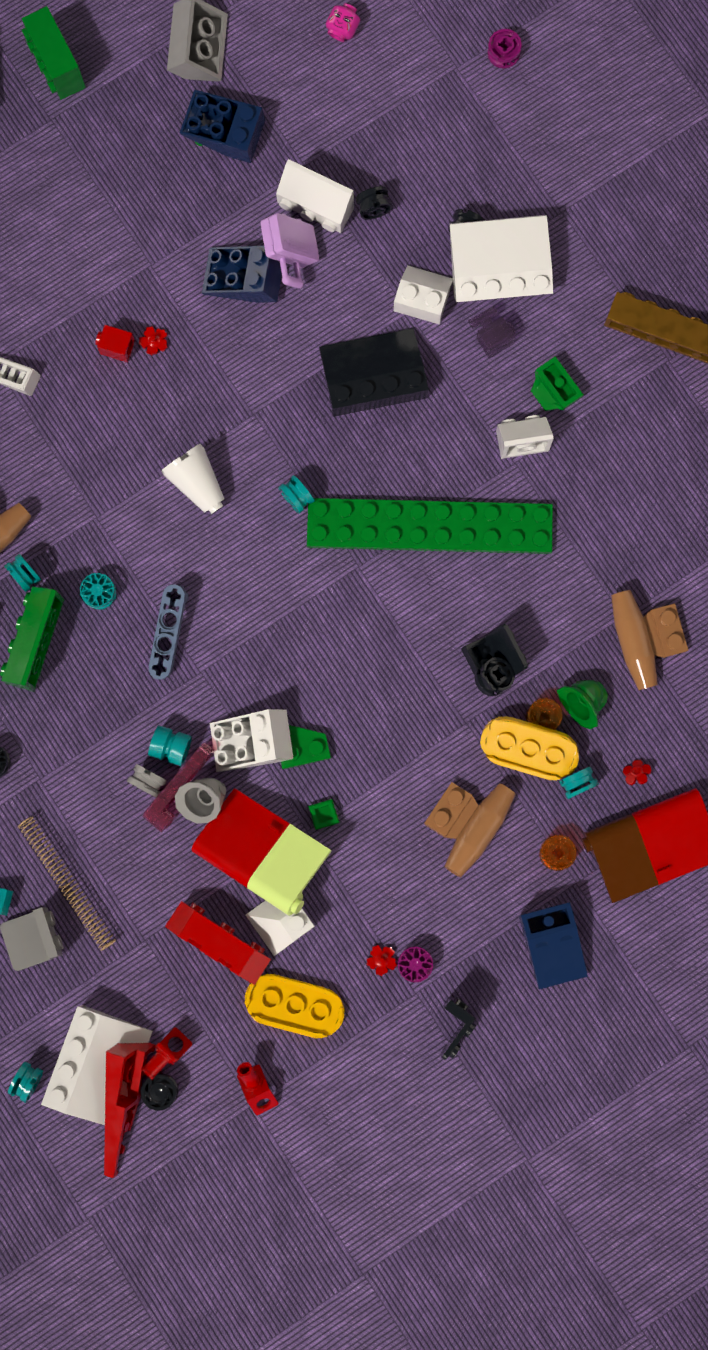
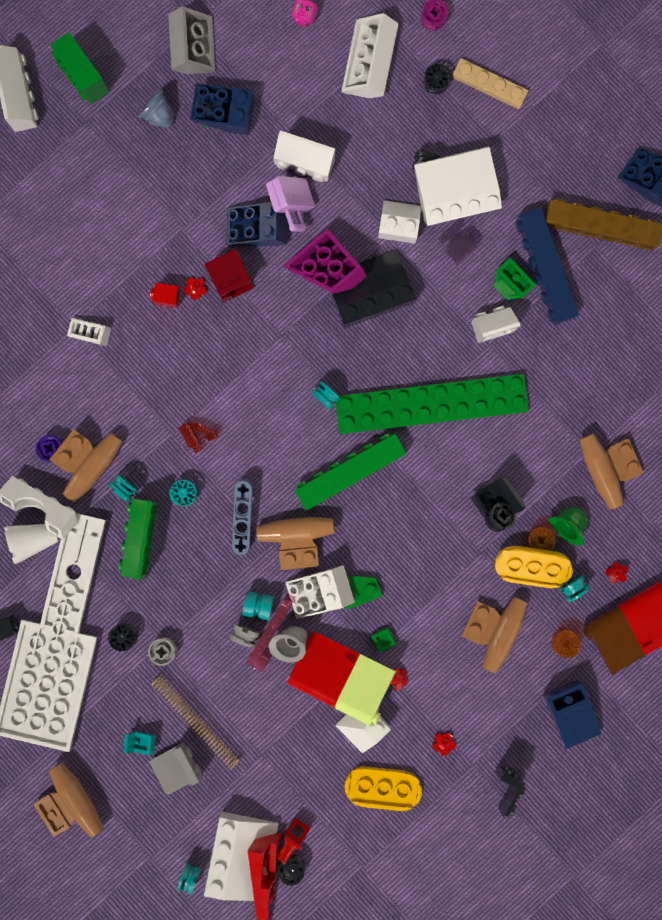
camera: 15 degrees left, 5 degrees up
(39, 786) = (162, 651): none -> light grey wheel
(118, 523) = (191, 438): none -> clear red plant
(142, 118) = (157, 110): none -> sand blue piece
(196, 479) = (245, 394): white cone -> none
(198, 329) = (229, 275): none -> dark red piece
(218, 942) = (318, 751): red brick -> none
(232, 670) = (297, 538): none -> medium nougat plate
(255, 1087) = (363, 855): red bracket -> none
(313, 595) = (349, 472): none -> green brick
(323, 331) = (327, 264): none -> magenta wedge
(335, 866) = (398, 679): none -> red plant
(374, 203) = (351, 154): black wheel -> none
(415, 964) = (470, 744): magenta wheel -> none
(416, 88) = (370, 56): none -> white slope
(495, 126) = (436, 79): none -> black wheel
(562, 141) = (490, 83): none -> tan plate
(601, 375) = (547, 267): none -> dark blue brick

